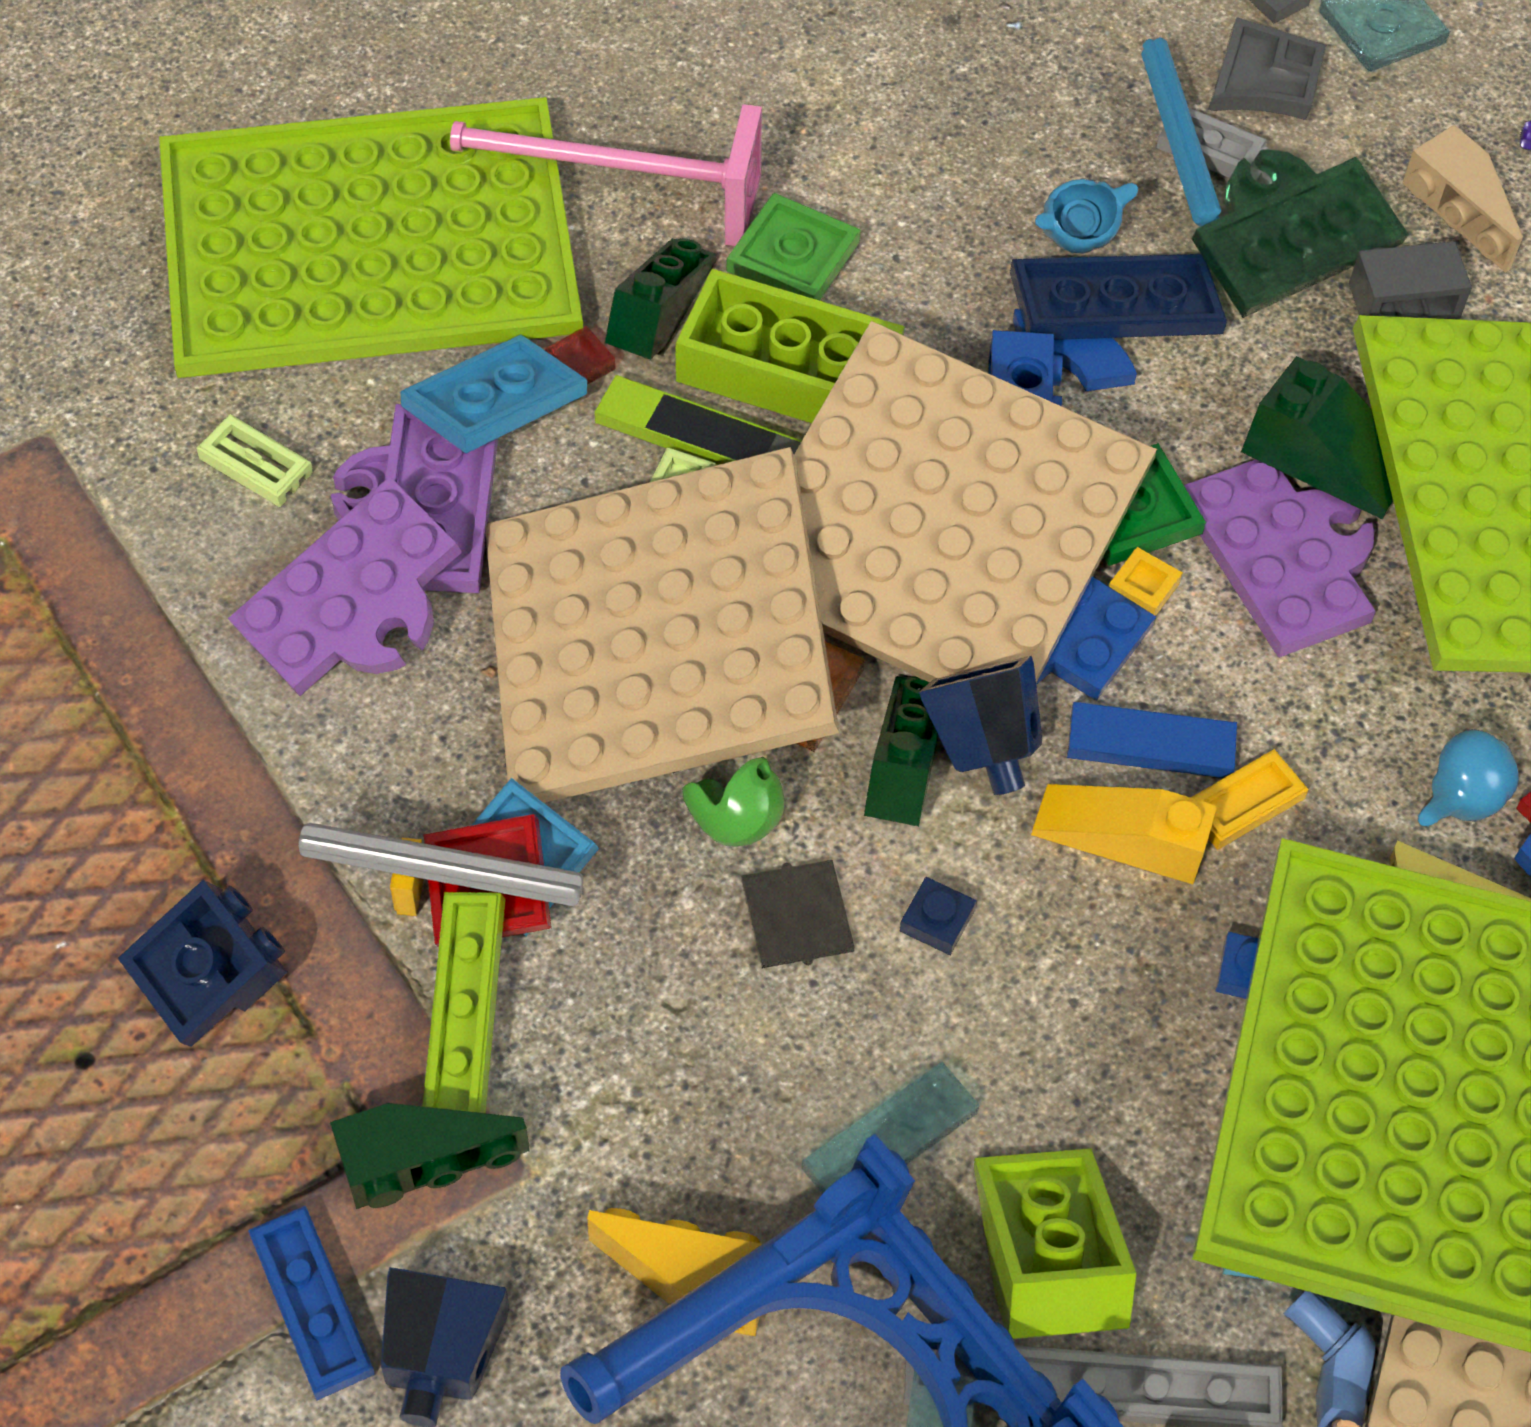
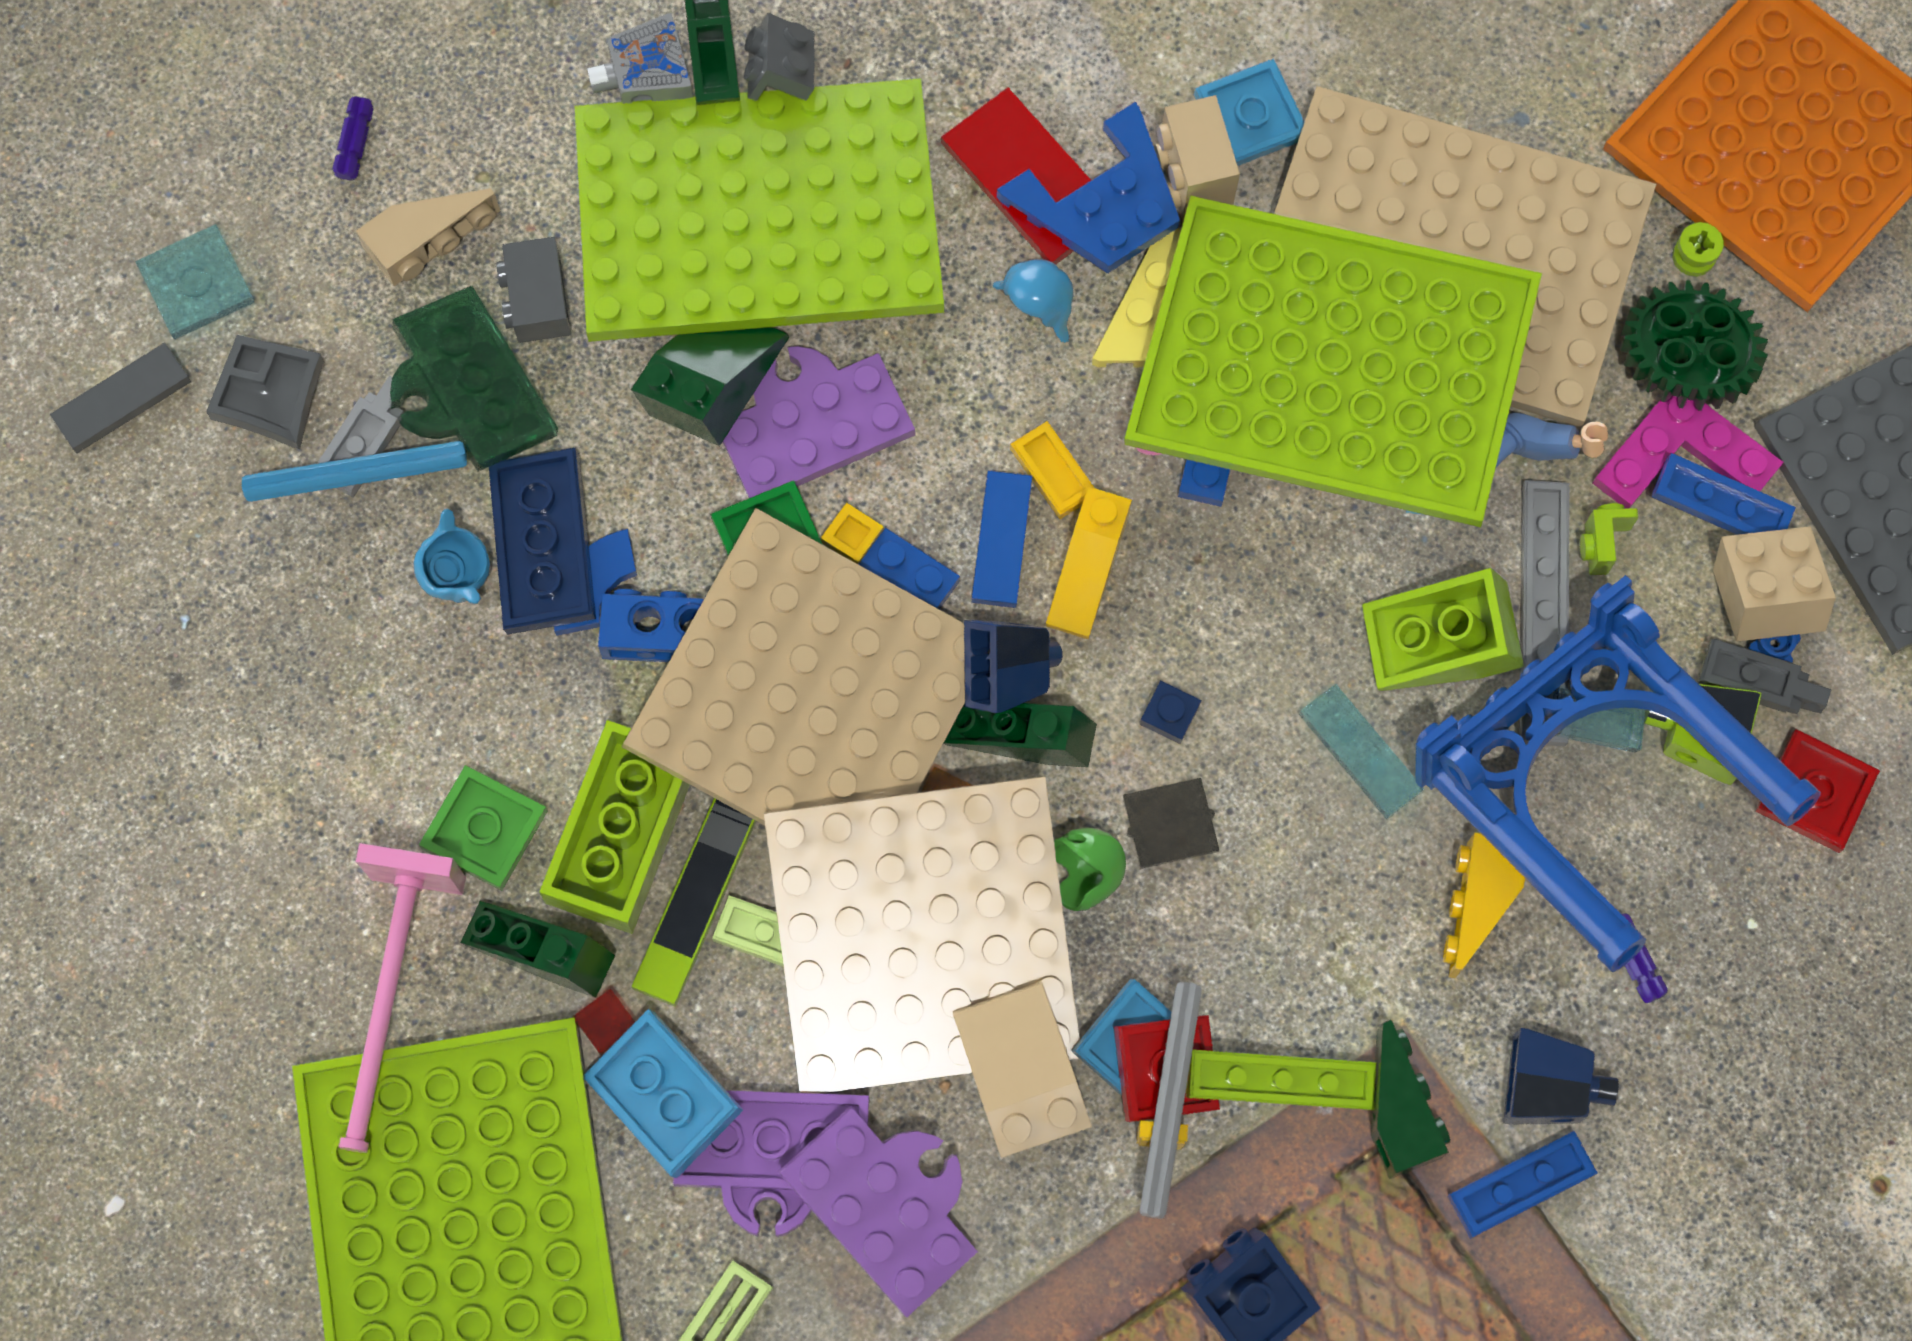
camera: 90 degrees left, 15 degrees up
(488, 720) = (1021, 1070): none -> tan slope

